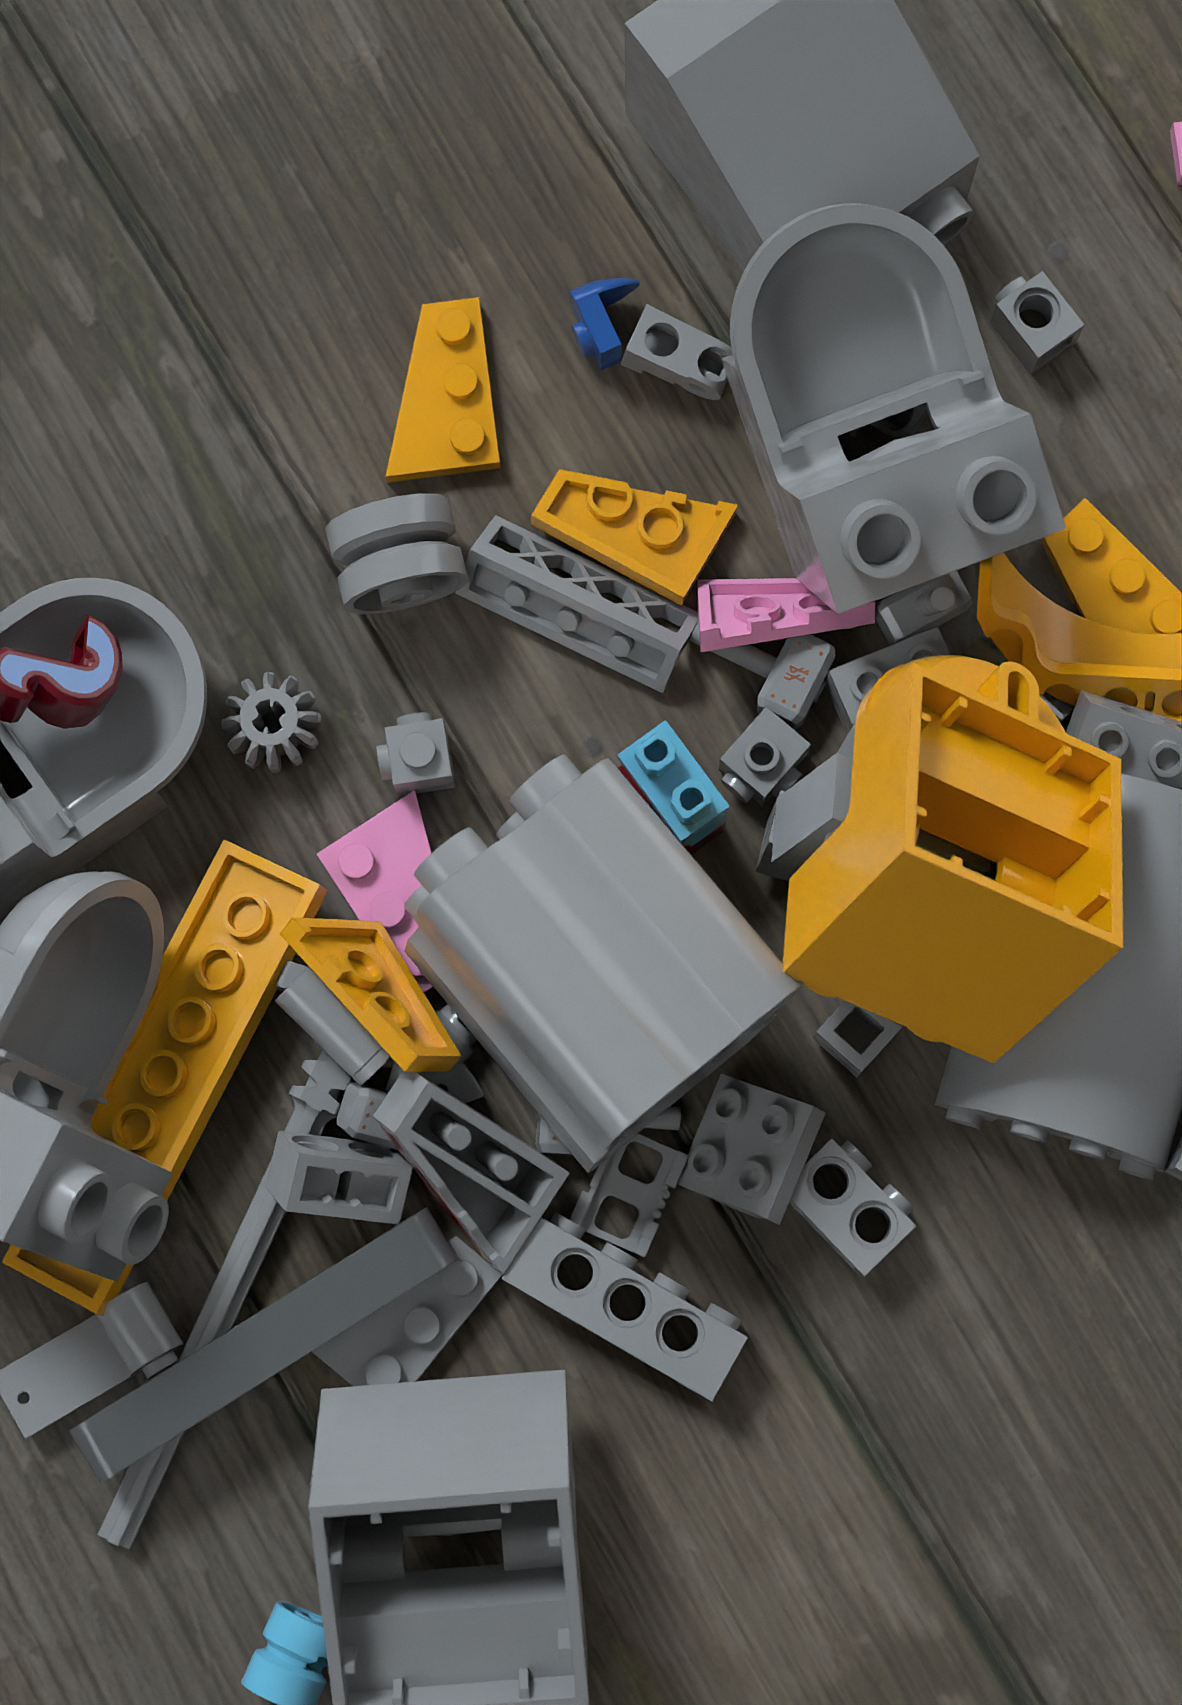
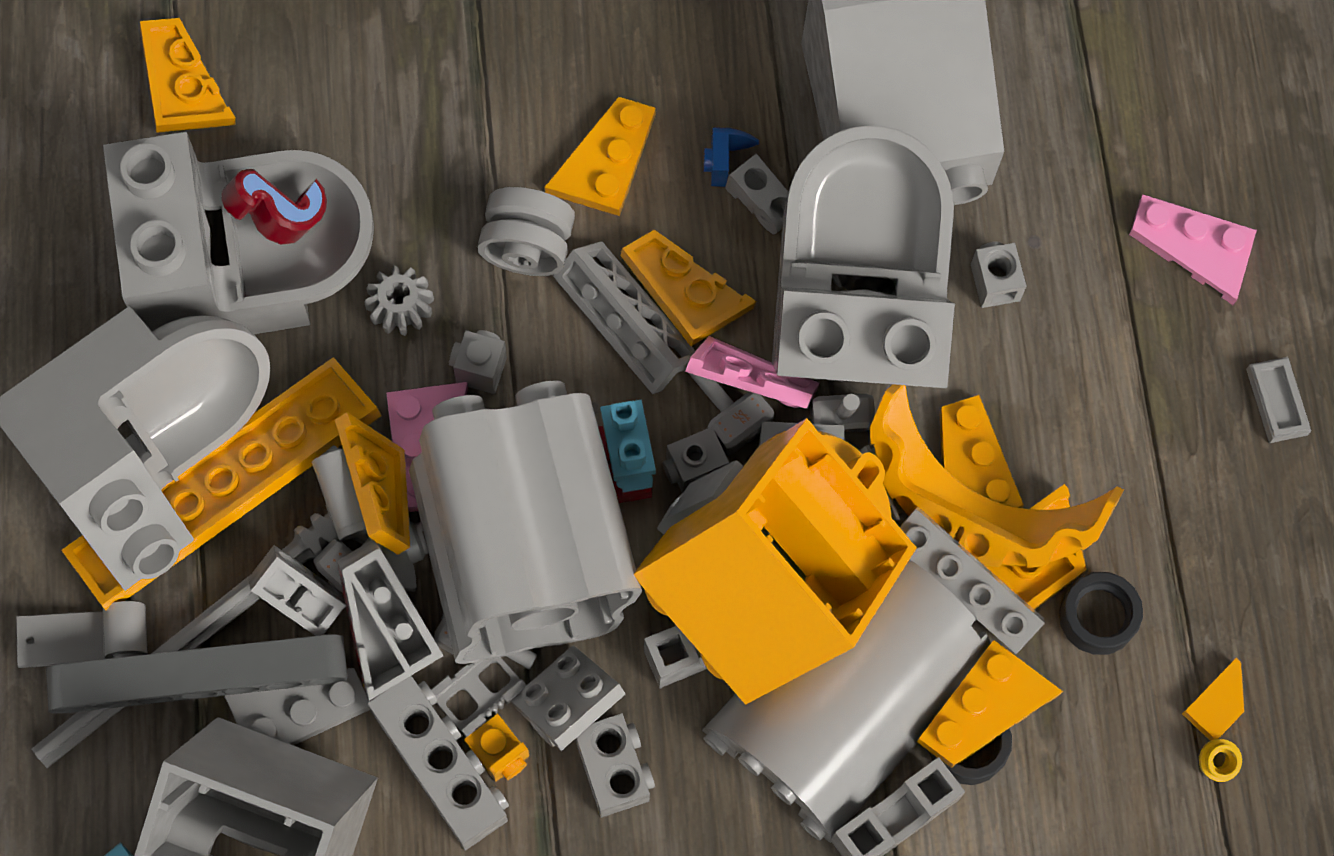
camera: 15 degrees right, 10 degrees down
(691, 1253) = (498, 749): none -> light orange bracket

